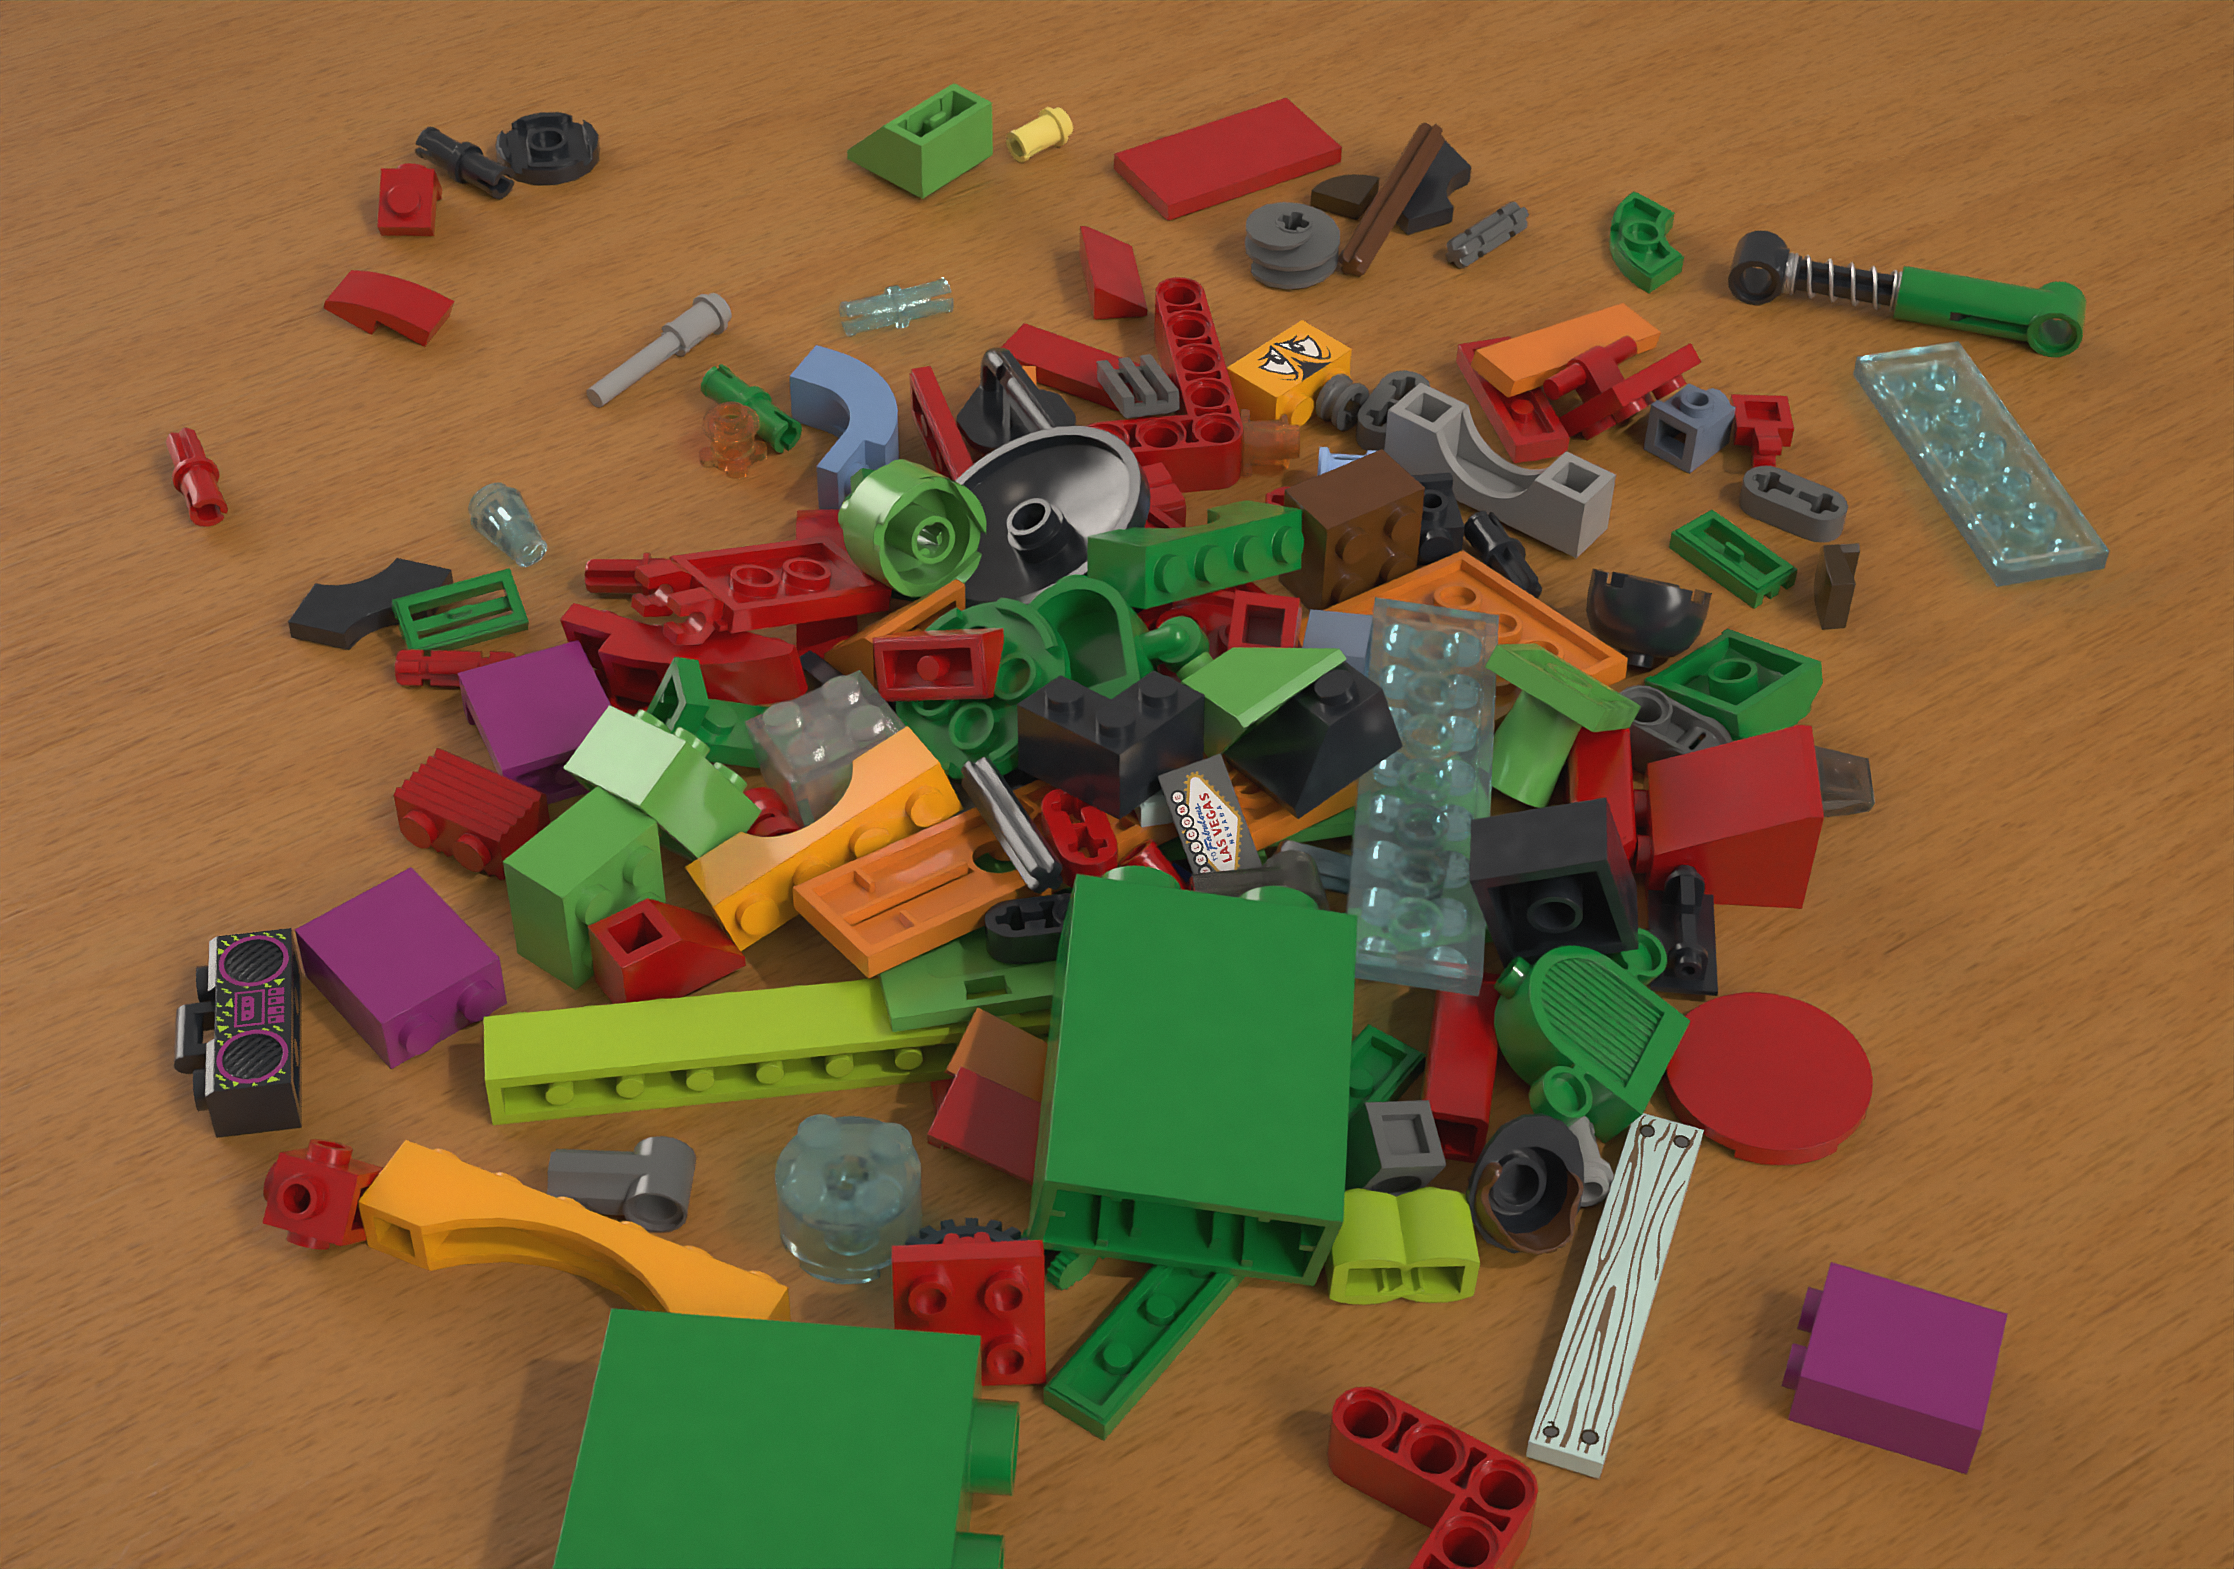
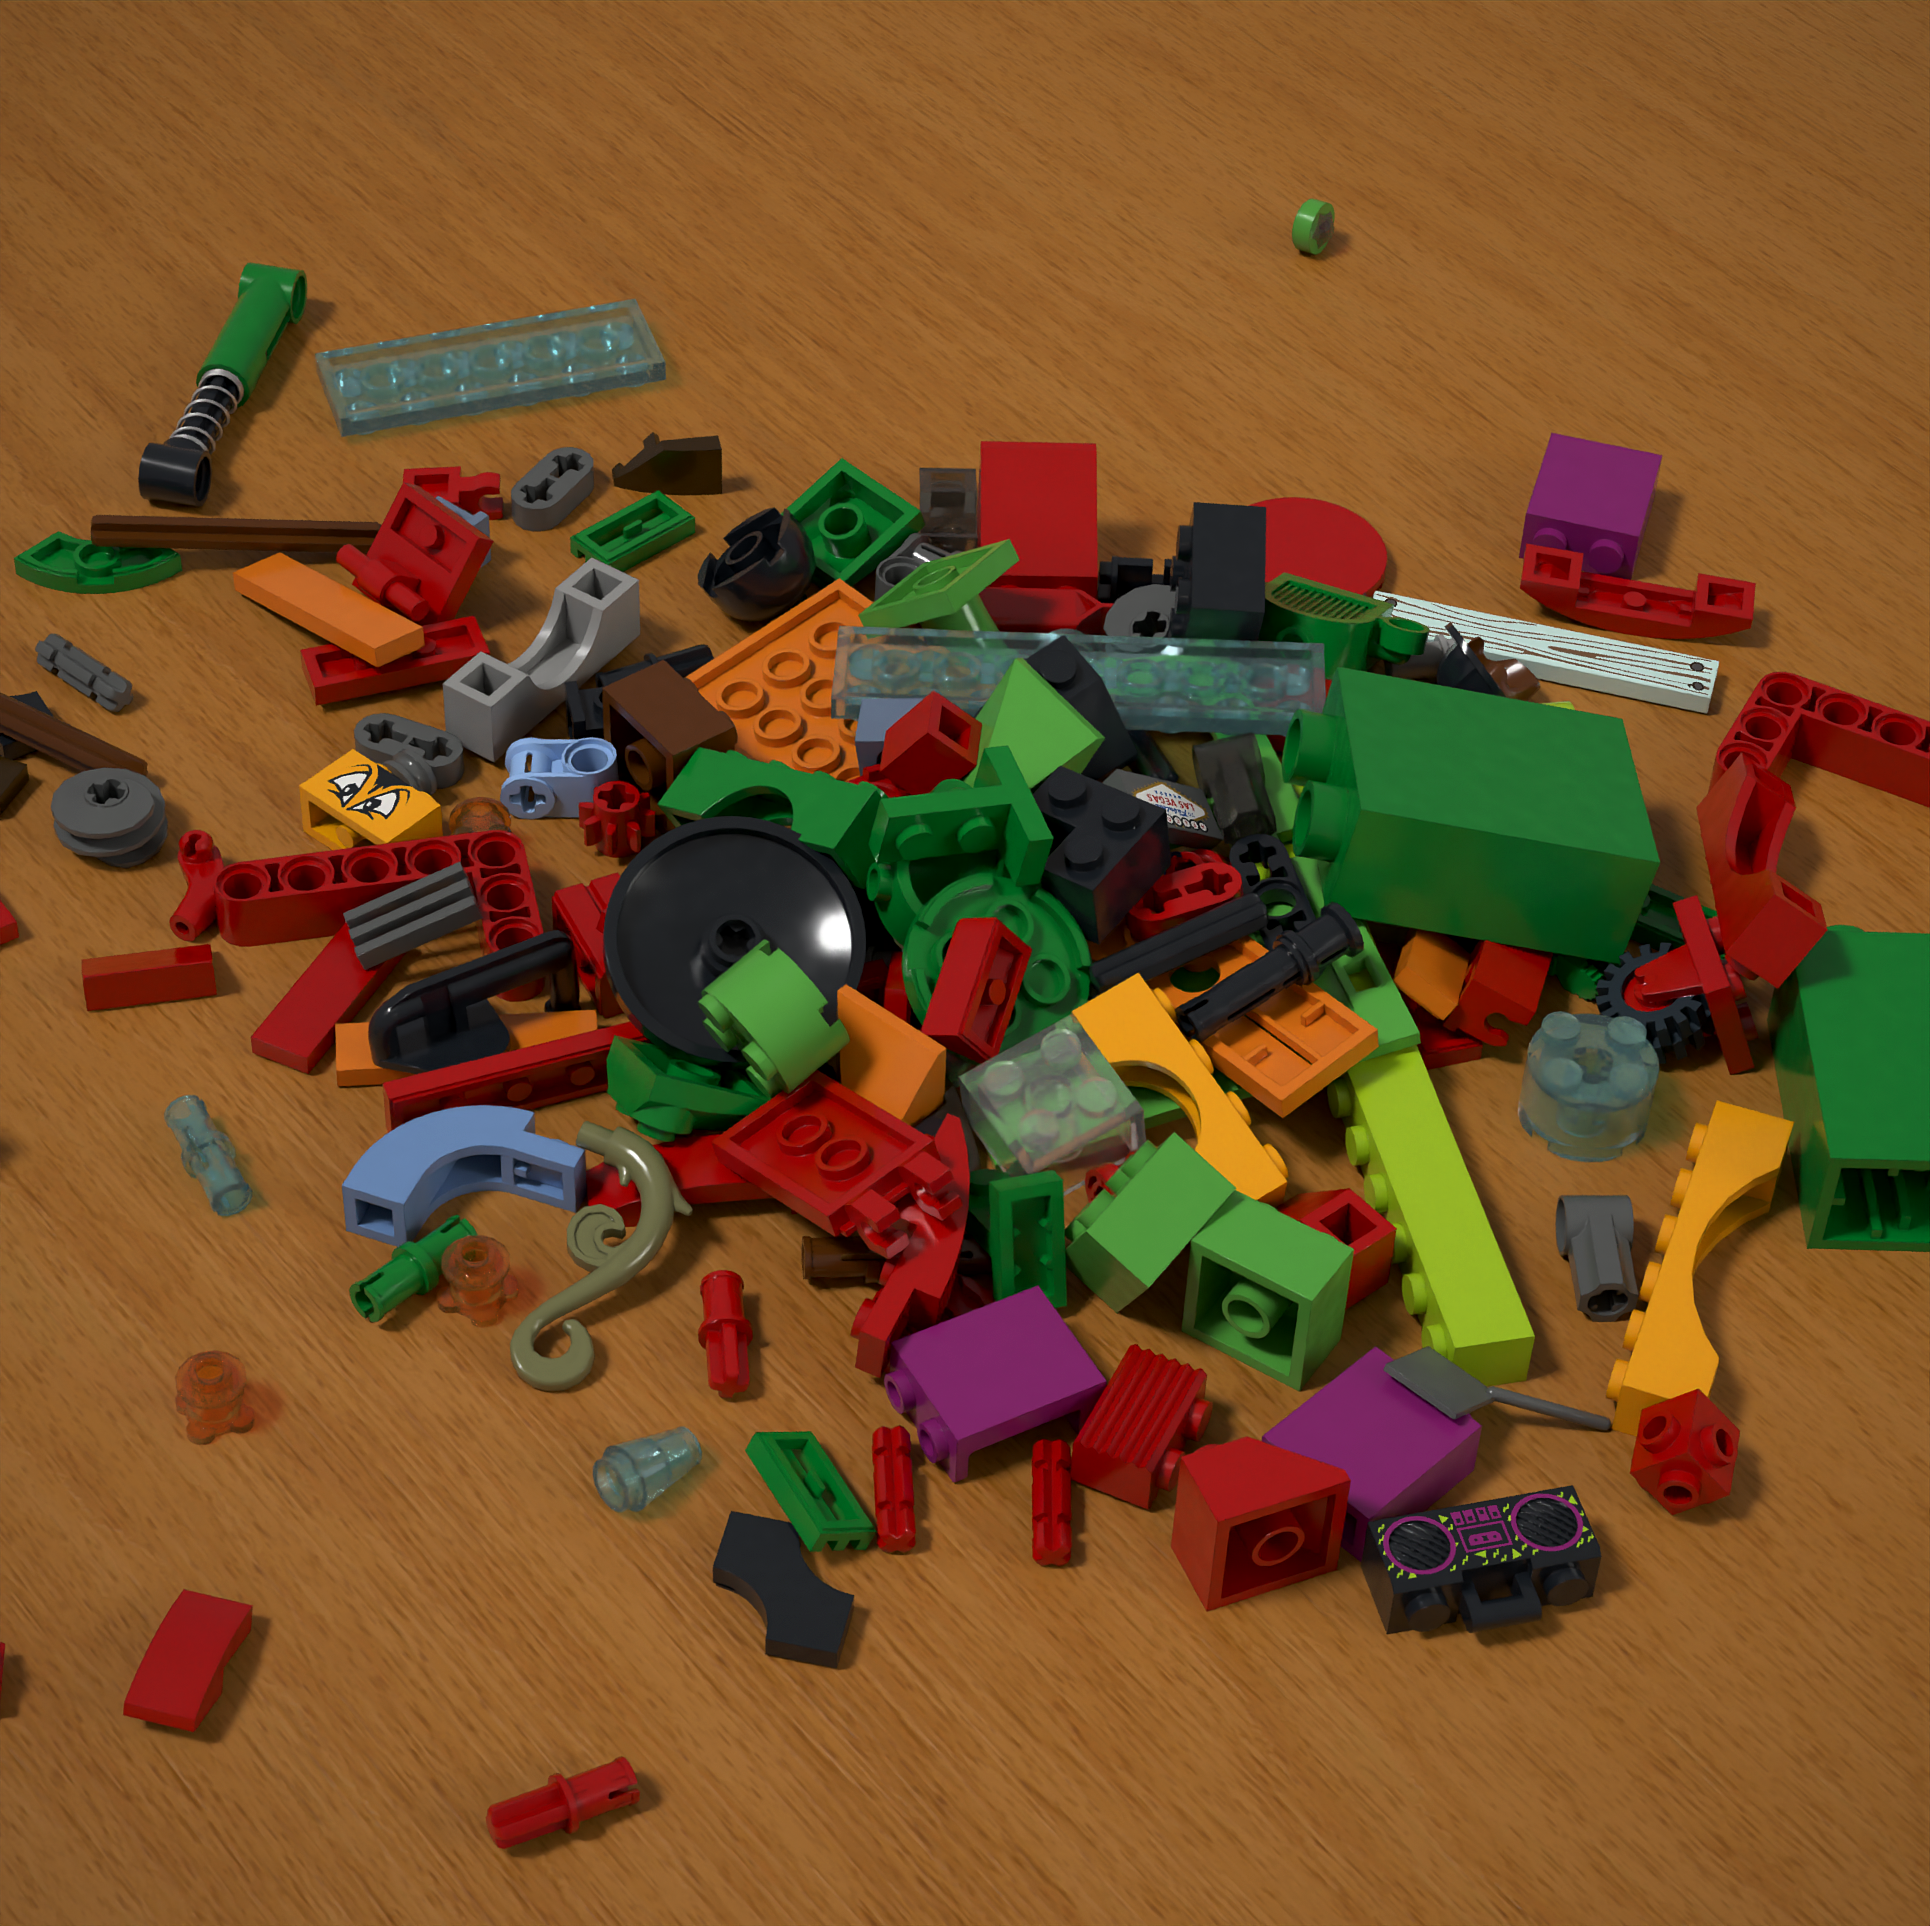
camera: 95 degrees left, 0 degrees up
(319, 836) = (1256, 1519): none -> red slope
(398, 761) = (1051, 1502): none -> red axle
(444, 1010) = (1460, 1393): none -> dark grey piece
(636, 309) = (211, 1396): none -> clear orange brick
(707, 316) = (228, 1327): light grey pin -> none
(724, 505) = (608, 1265): none -> olive plant
(956, 886) = (1293, 960): none -> black pin
(1099, 632) = (987, 817): none -> green bracket
(1105, 1343) = (1761, 916): none -> red arch
(1236, 297) = (199, 864): none -> red arm
(1671, 288) = (231, 533): none -> reddish brown axle
(1721, 1384) = (1636, 607): none -> red slope

